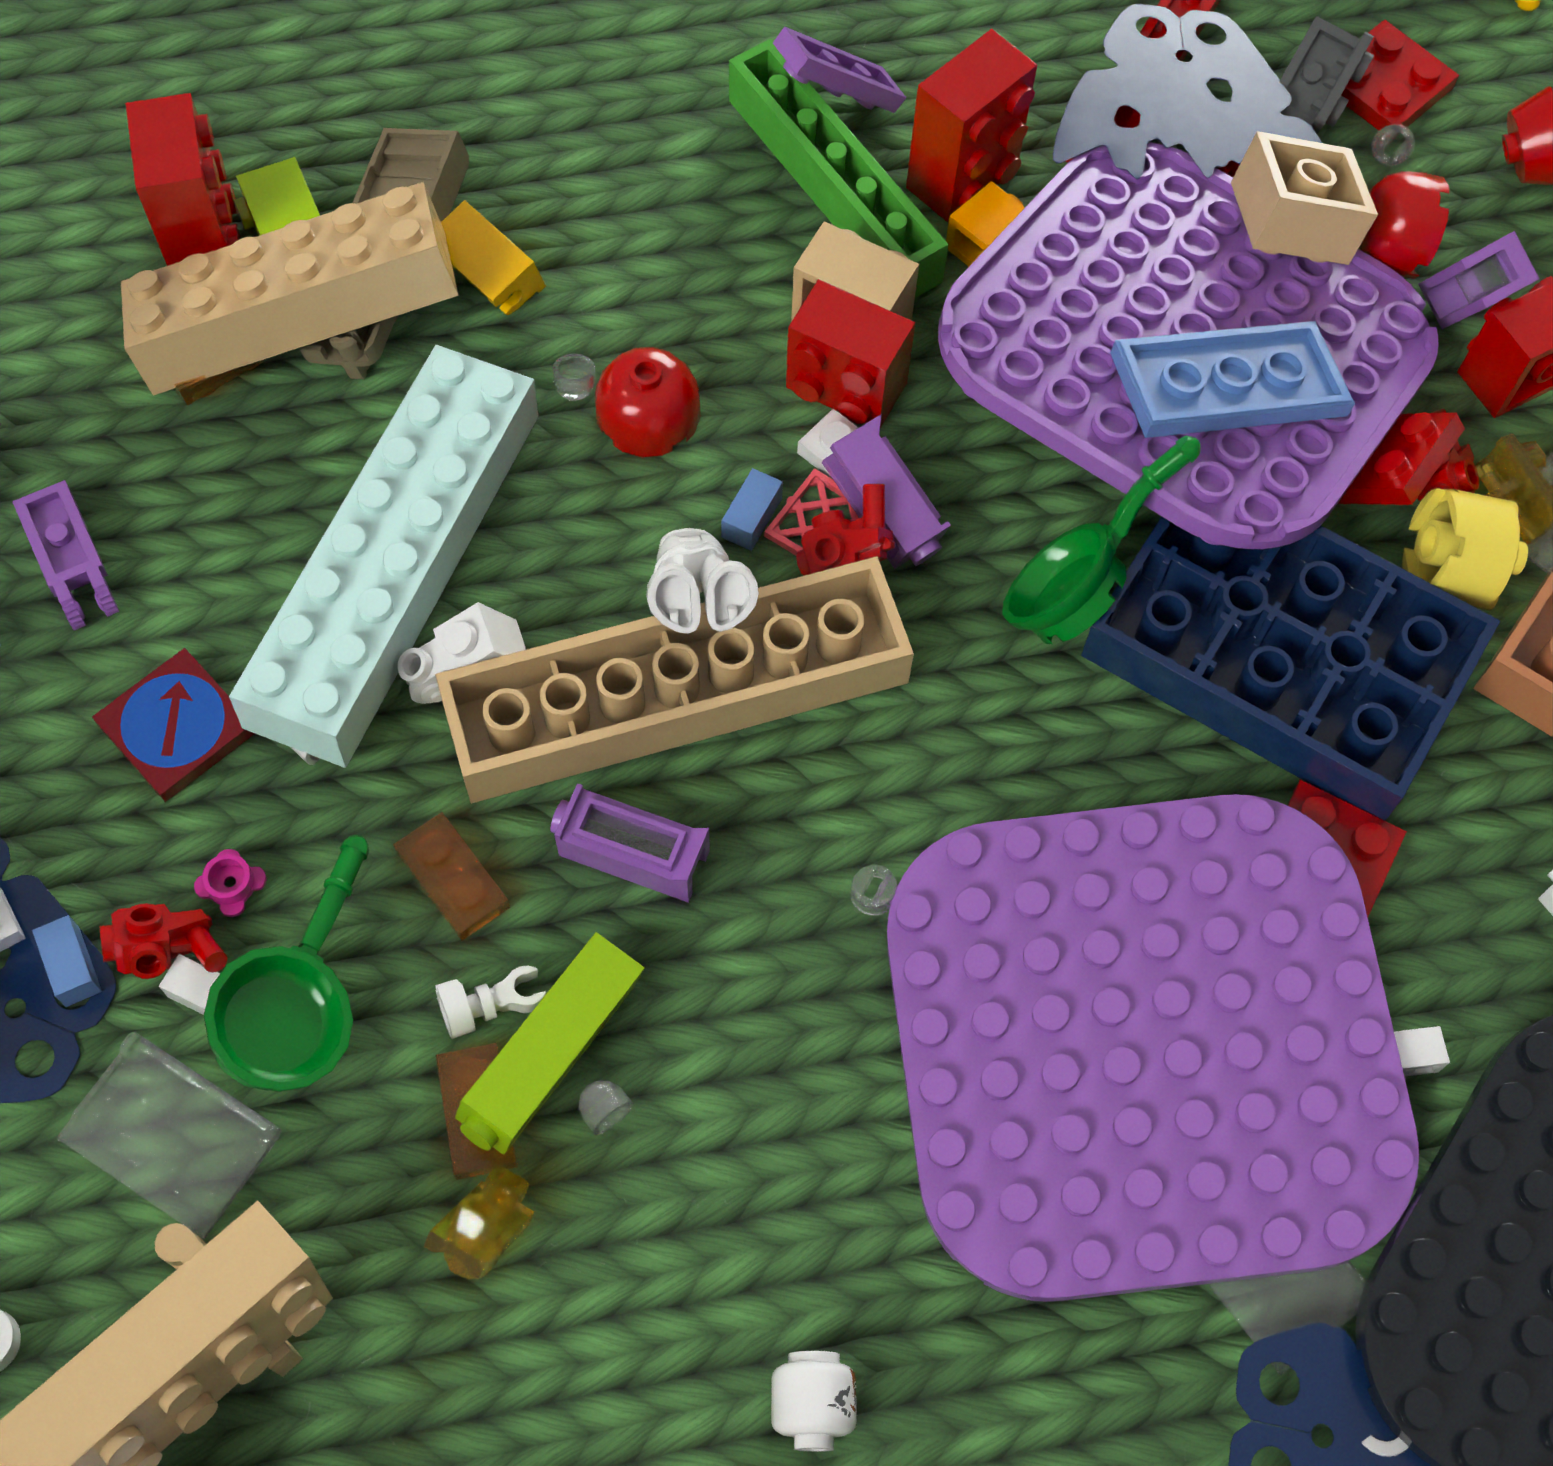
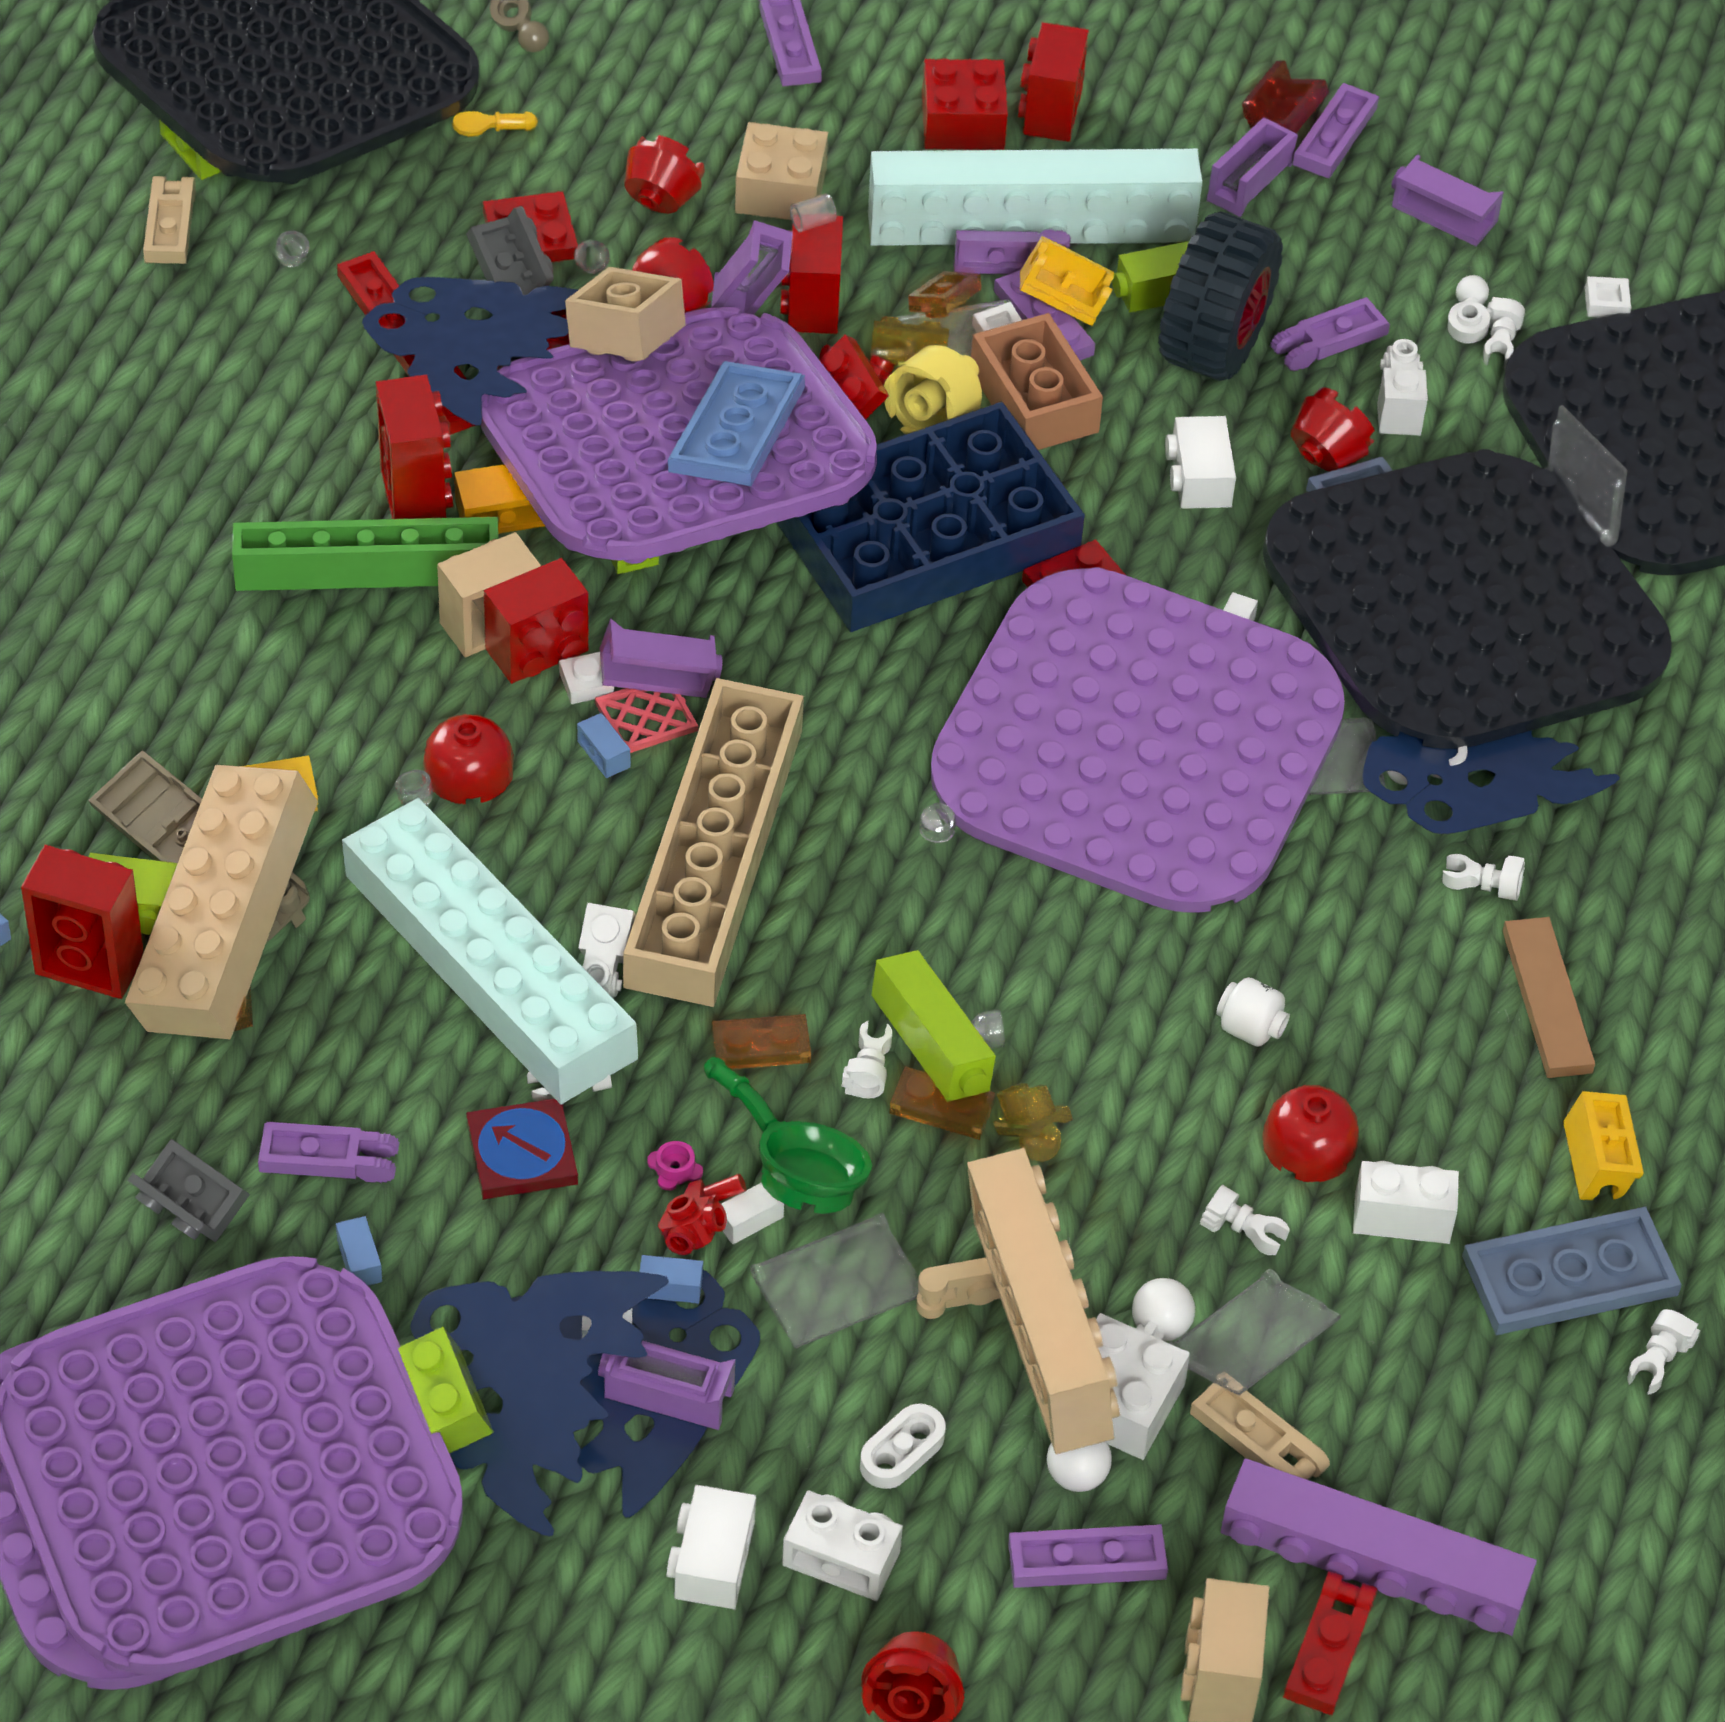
camera: 60 degrees left, 15 degrees down
(629, 842) = (816, 926): medium lavender window -> none
(696, 563) = (654, 780): white piece -> none
(837, 71) = (290, 504): medium lavender plate -> none
(844, 541) = (683, 703): red piece -> none
(1071, 577) = (803, 589): green piece -> none

